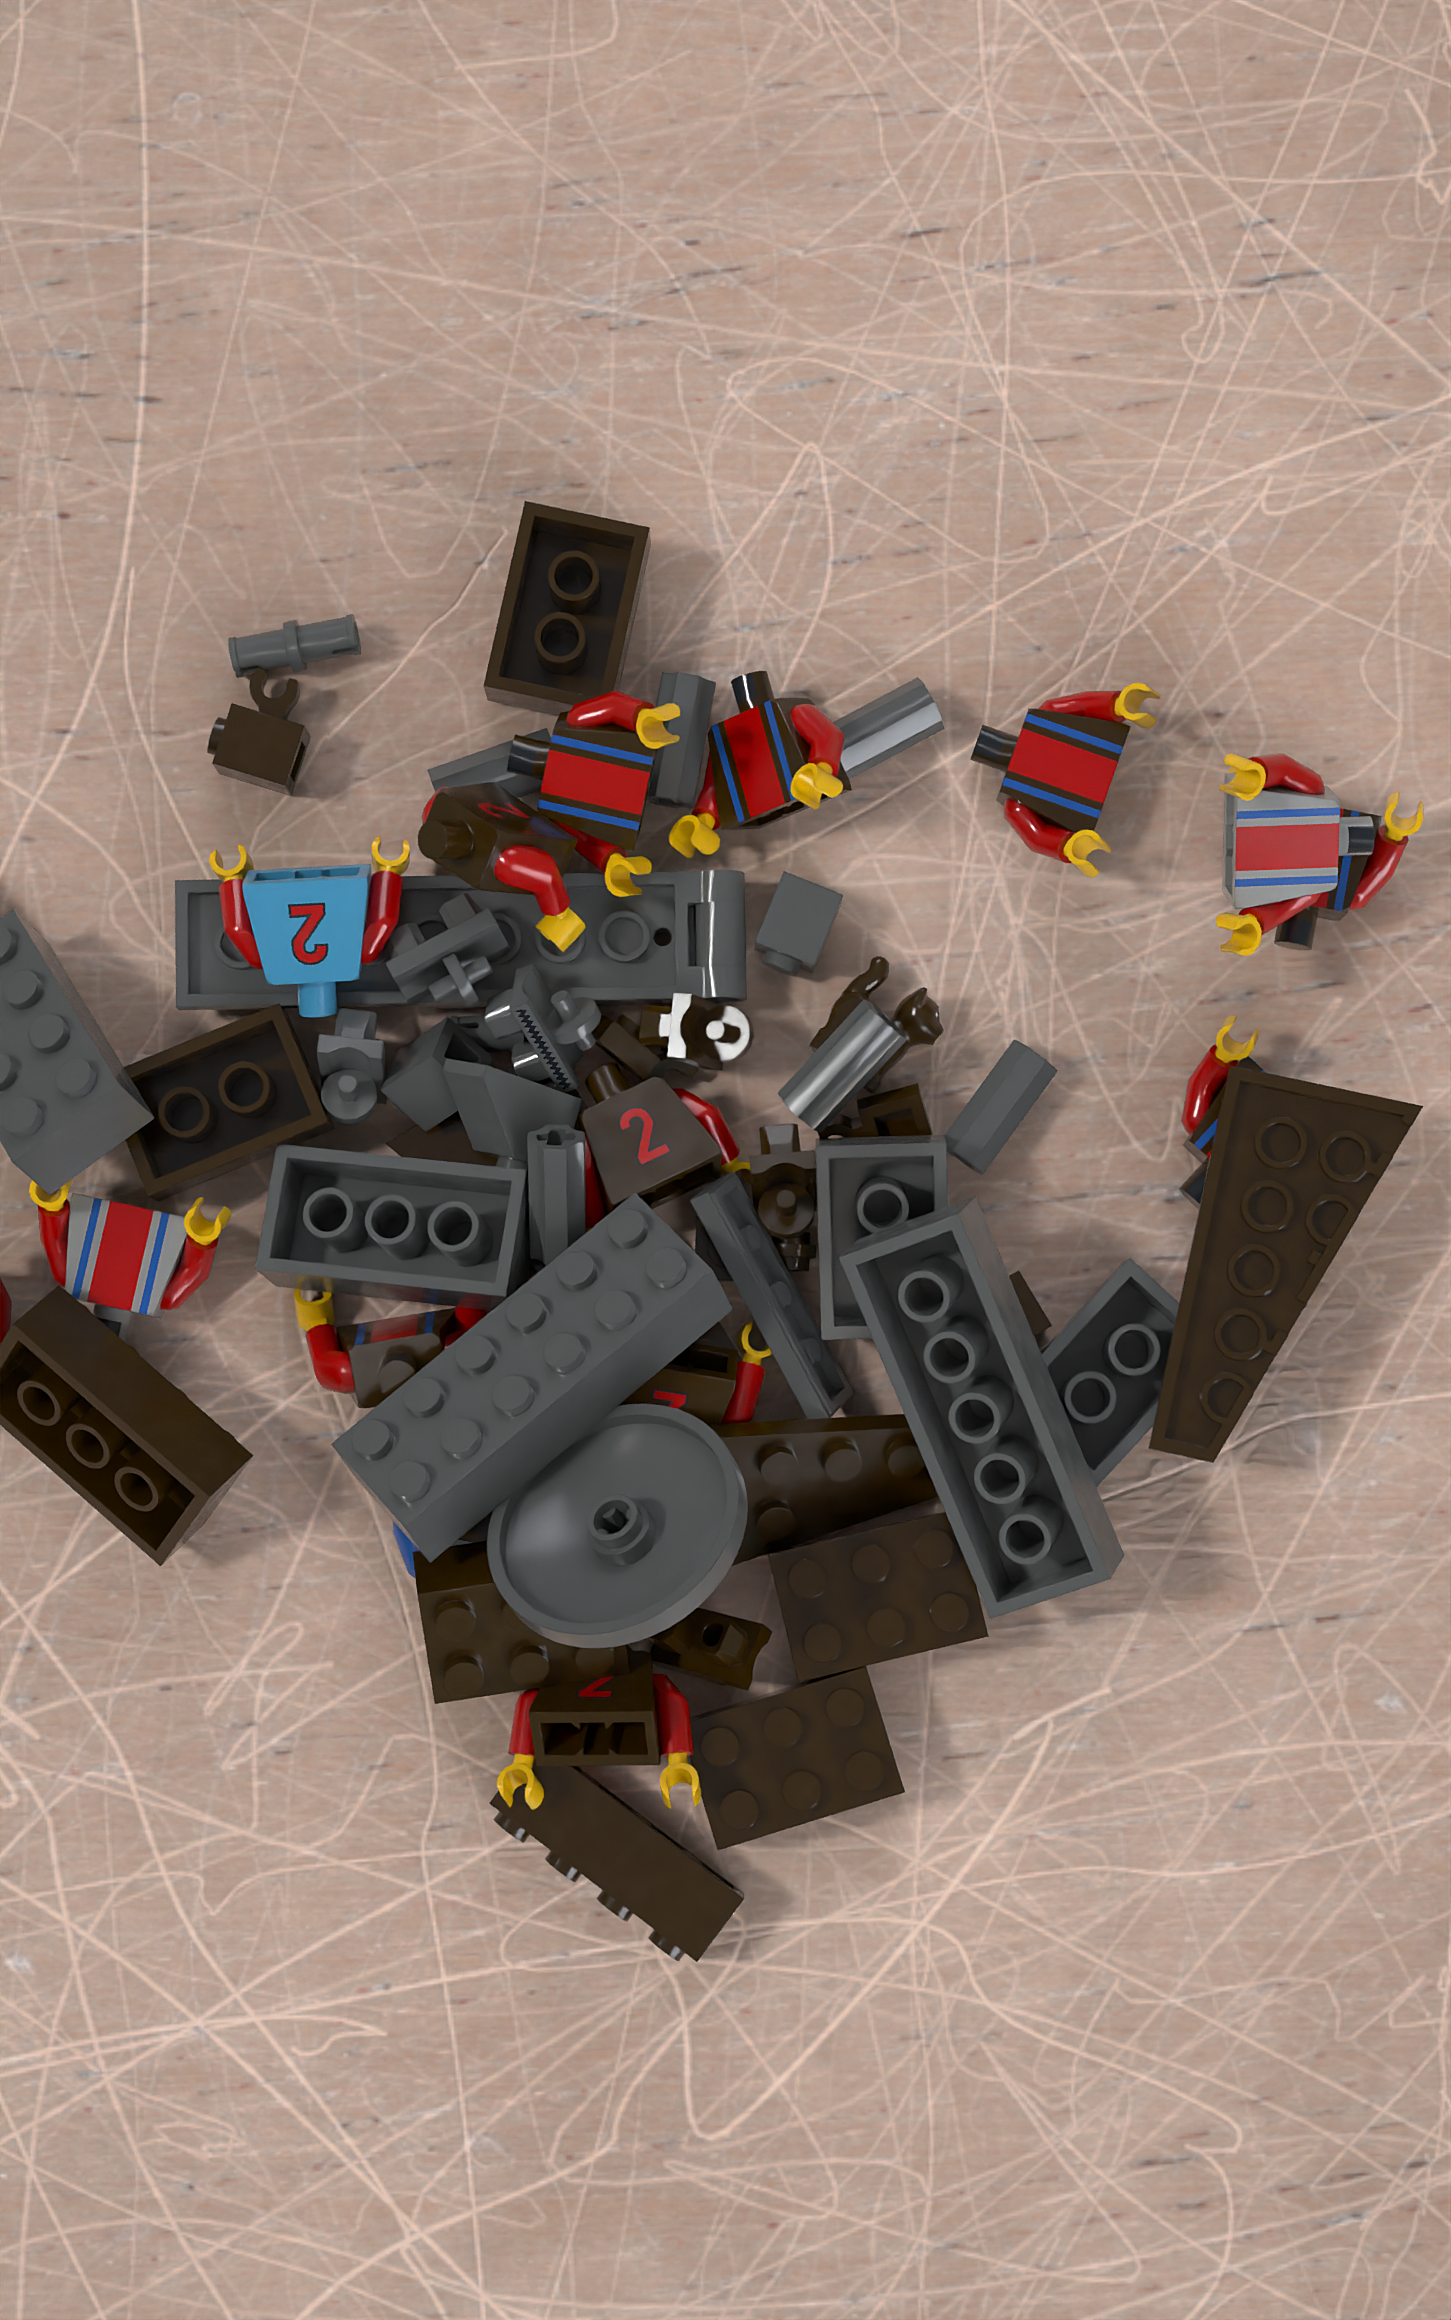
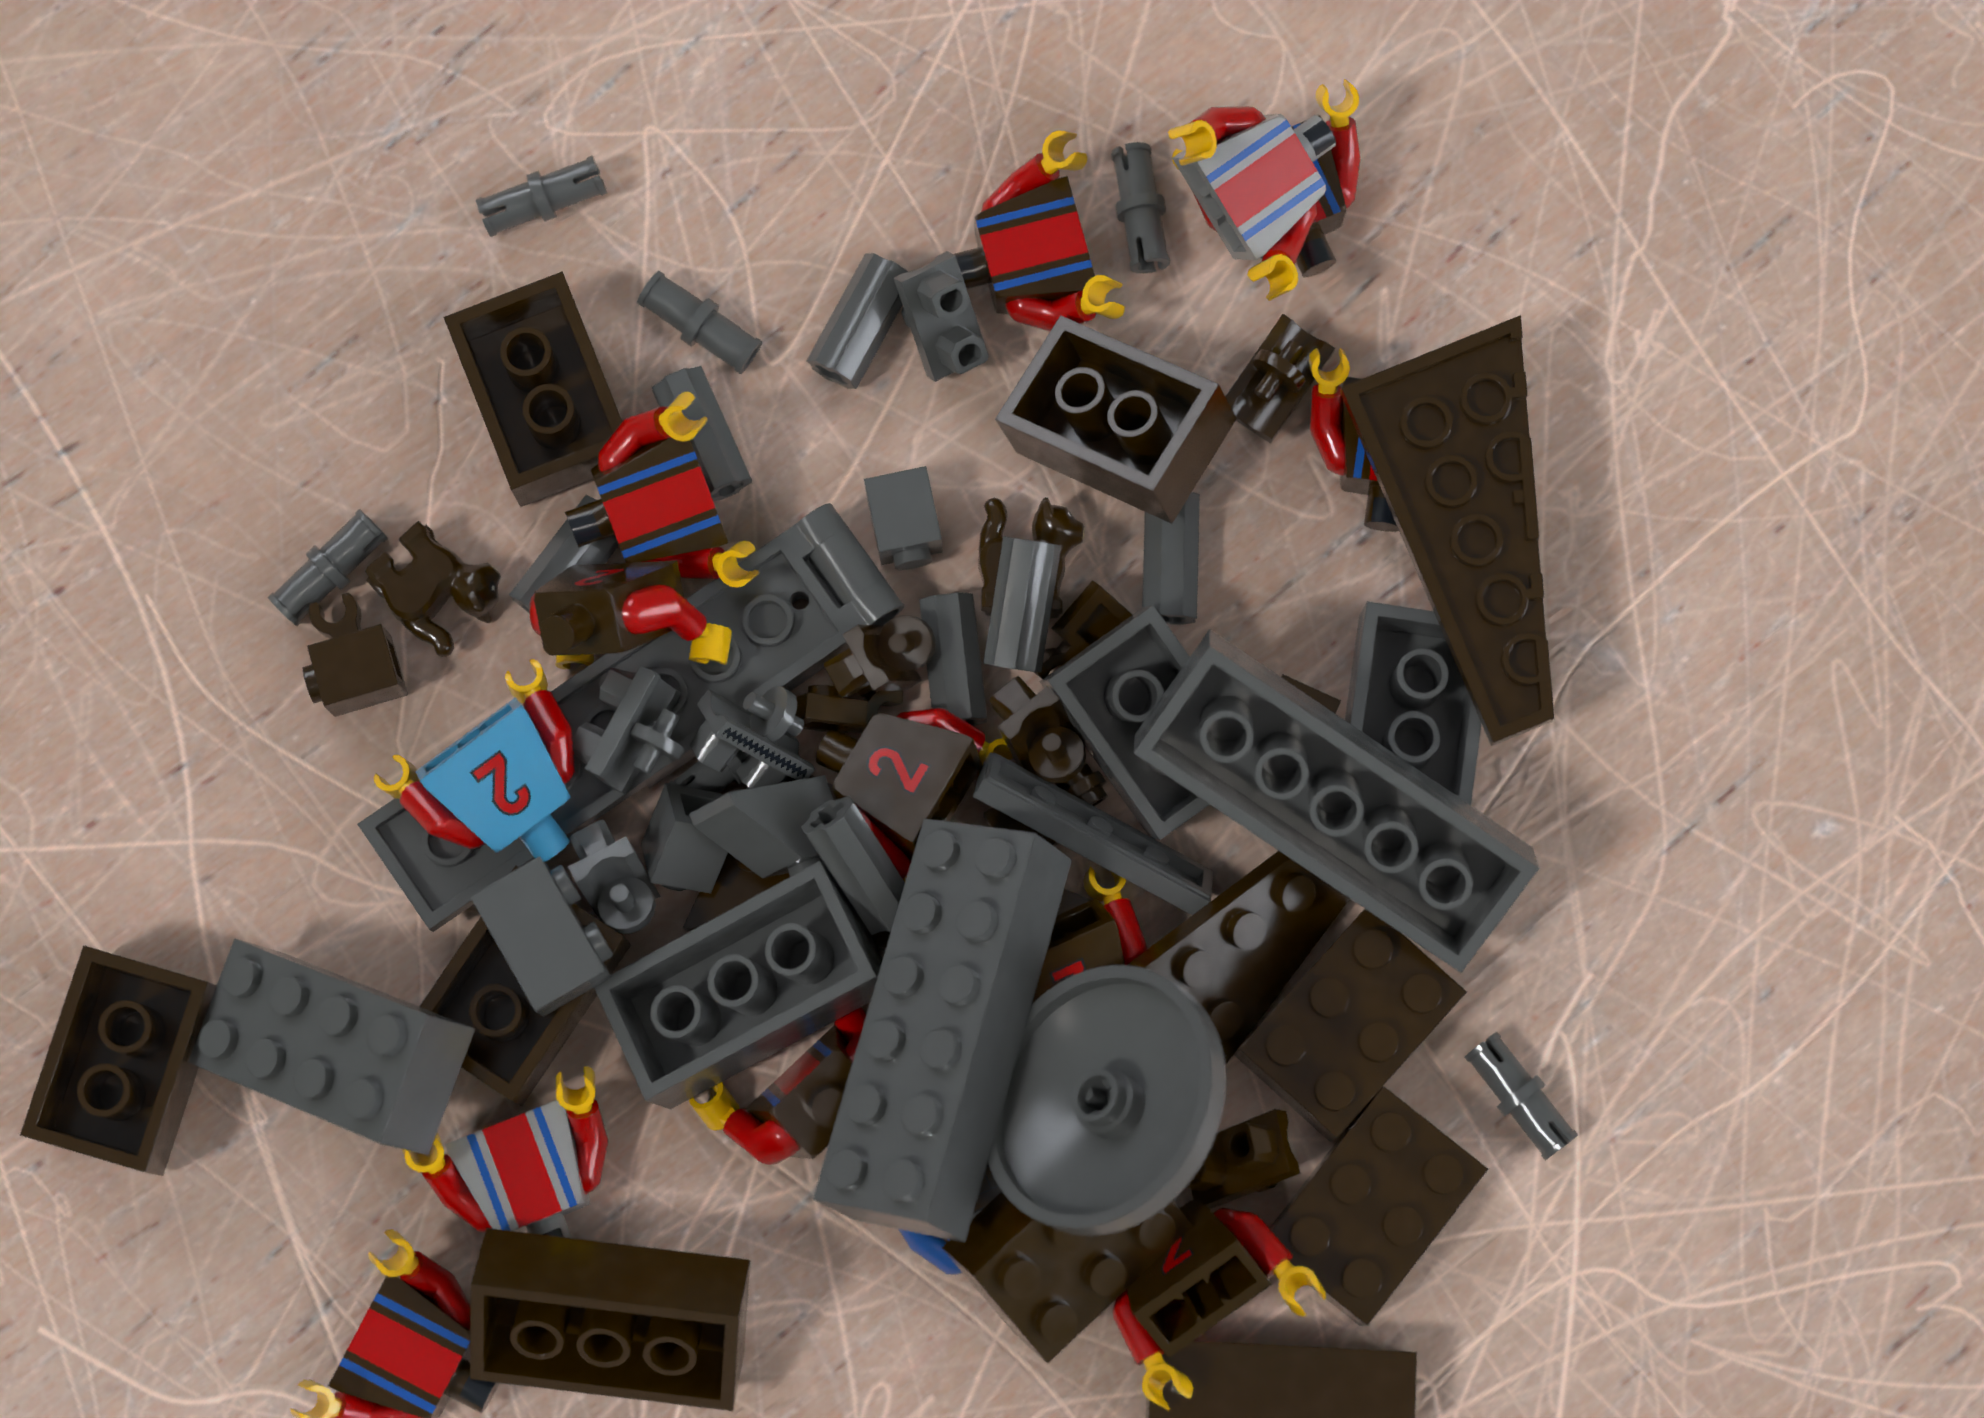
camera: 35 degrees left, 5 degrees down
(261, 1078) = (543, 936): none -> dark grey brick
(369, 714) = (427, 584): none -> dark brown animal
(680, 446) = (541, 196): none -> dark grey pin
(735, 630) = (699, 322): none -> dark grey pin
(758, 1075) = (956, 663): none -> dark grey axle
(763, 766) = (788, 404): torso -> none
(943, 777) = (941, 317): none -> dark grey hips
(978, 1750) = (1521, 1096): none -> dark grey pin
(1028, 962) = (1116, 418): none -> dark brown brick
(1177, 792) = (1140, 208): none -> dark grey pin
(1188, 1016) = (1276, 378): none -> dark brown hips

